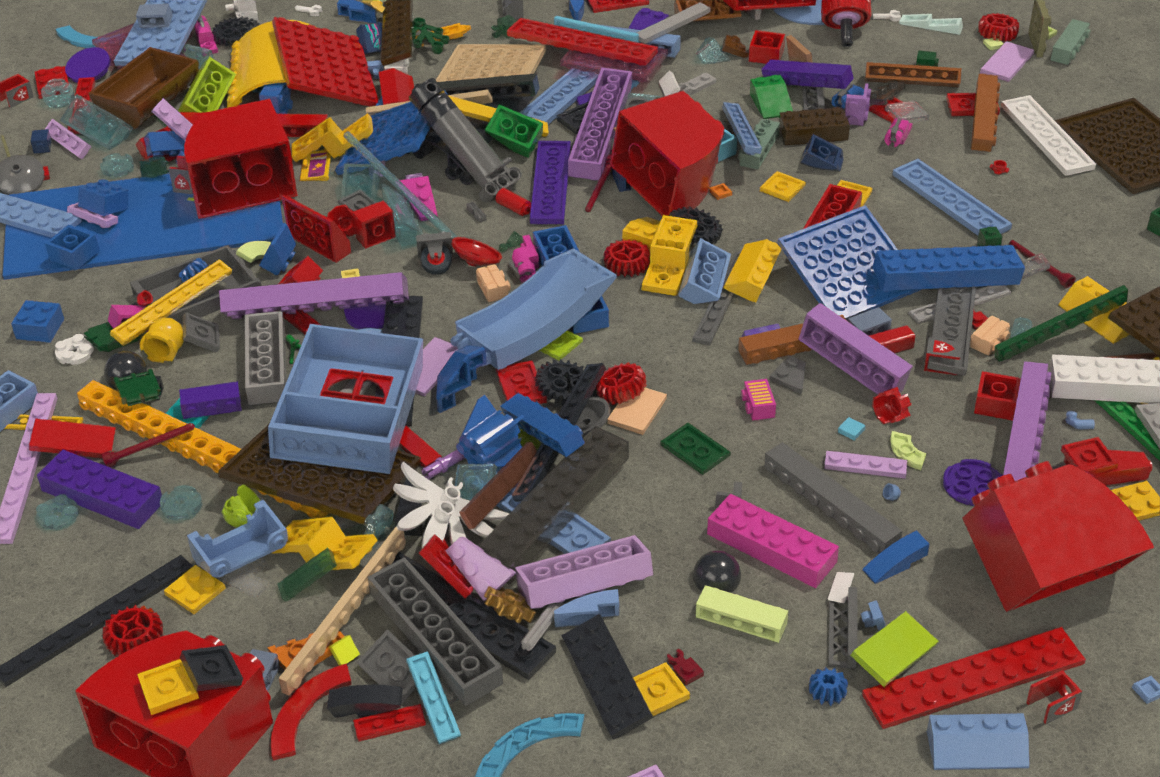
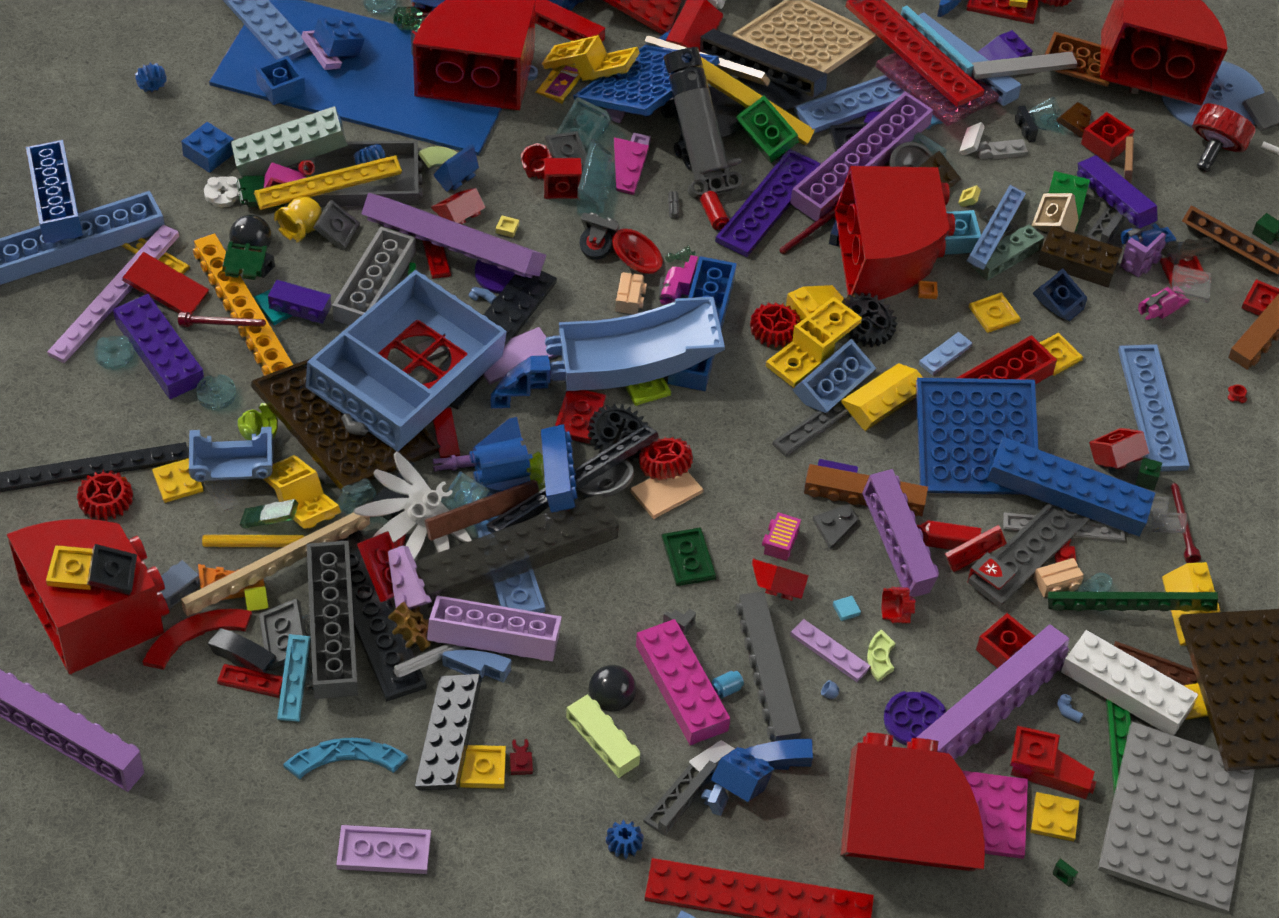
camera: 25 degrees right, 10 degrees up
(115, 286) = (289, 142): none -> sand green brick
(301, 607) = (249, 540): none -> yellow axle
(315, 230) = (504, 163): red slope -> none
(339, 469) = (354, 427): none -> dark grey arm
(397, 184) = (613, 147): clear light blue piece -> none
(701, 62) = (1026, 123): none -> black plate
(771, 225) = (945, 353): none -> light blue plate
(774, 101) = (1056, 211): none -> tan slope
(788, 427) = (779, 580): none -> red slope
(811, 522) = (727, 683): none -> dark azure brick
(871, 321) = (949, 508): sand blue brick -> none
(885, 583) = (743, 774): none -> blue brick
(894, 648) = (706, 836): lime tile -> none
(916, 339) = (975, 548): none -> red tile
(957, 229) = (1119, 448): none -> red brick

